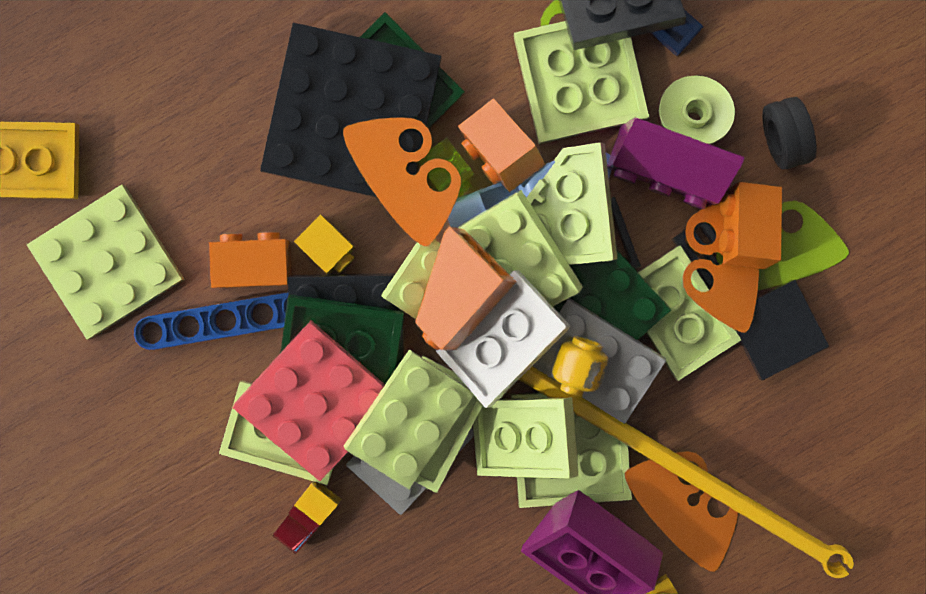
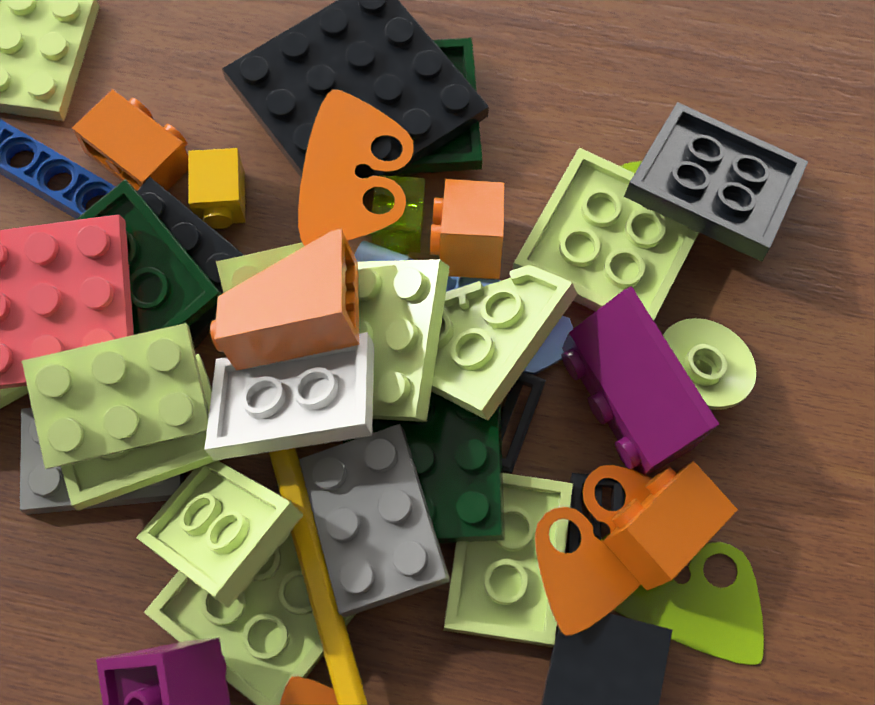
camera: 35 degrees right, 20 degrees down
(580, 366) = (345, 495): yellow head -> none
(680, 36) = (749, 279): dark blue tile -> none
(789, 133) = (792, 462): black tyre -> none

